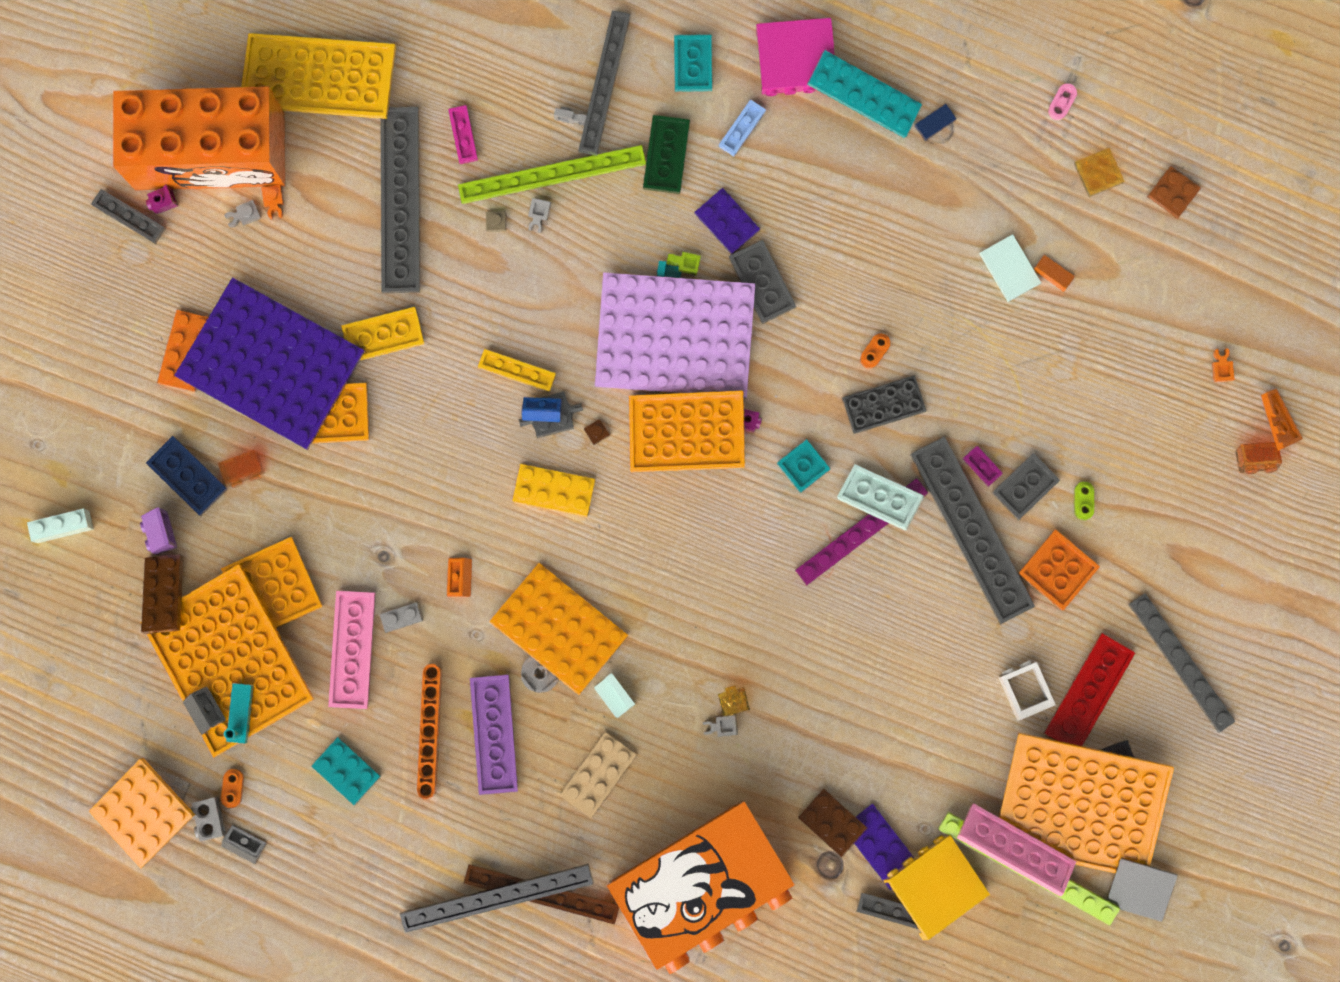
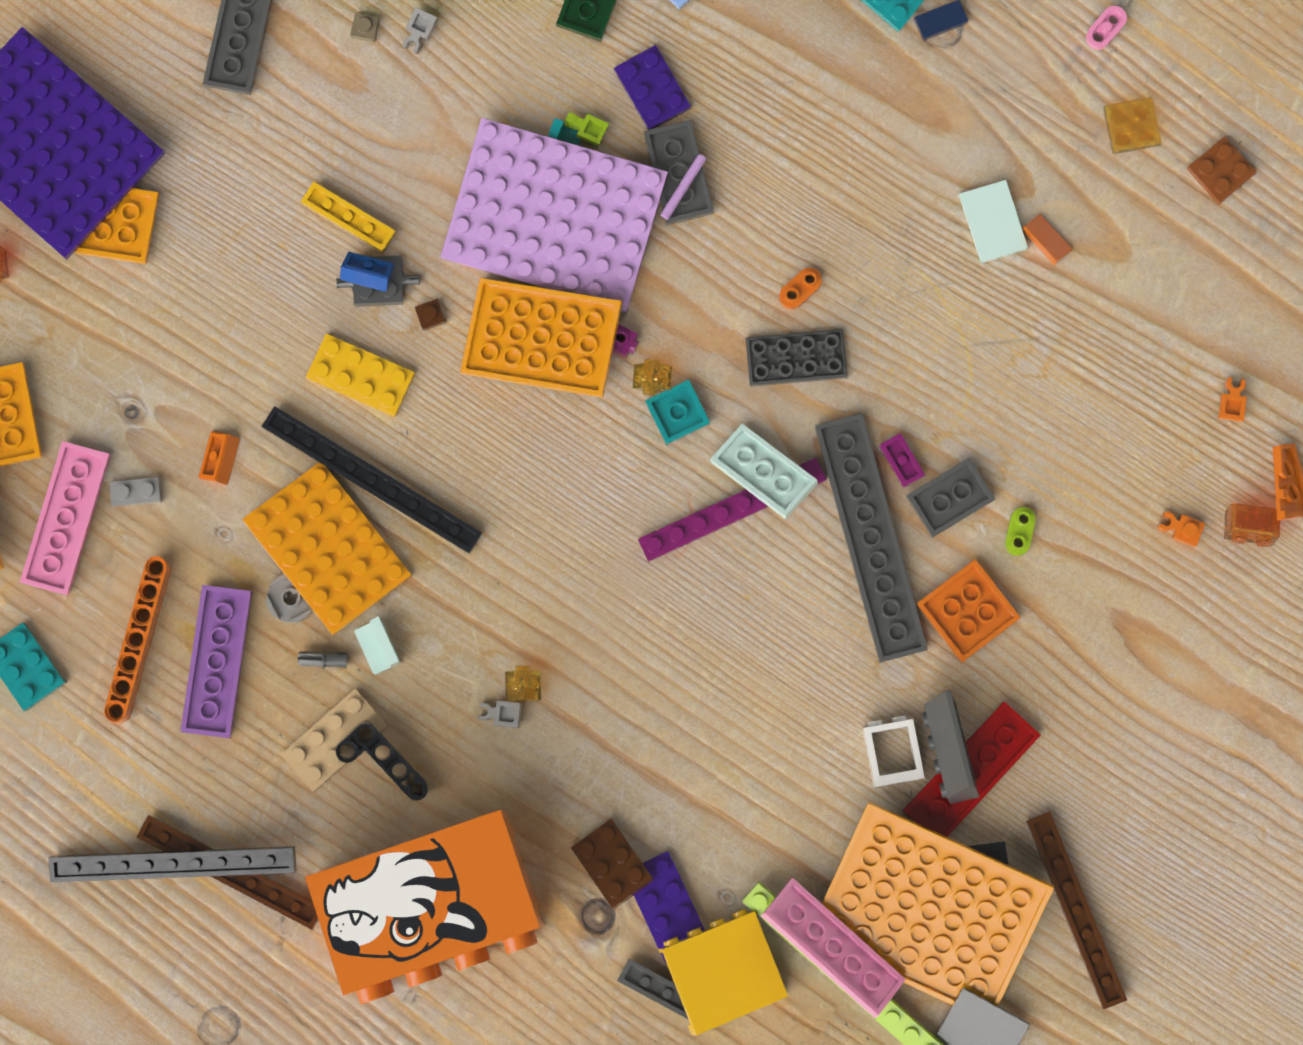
camera: 15 degrees right, 0 degrees up
(385, 333) = (196, 136): yellow plate -> none
(575, 715) = (323, 659): none -> dark grey axle
(581, 568) = (372, 480): none -> black plate
(644, 783) = (385, 763): none -> black beam
(769, 292) = (683, 186): none -> lavender bar
(778, 443) = (652, 377): none -> clear yellow brick
(1071, 678) = (951, 749): none -> dark grey slope
(1181, 663) = (1097, 761): dark grey plate -> none
(1192, 780) = (1076, 910): none -> reddish brown plate
(1208, 472) = (1185, 529): none -> orange plate

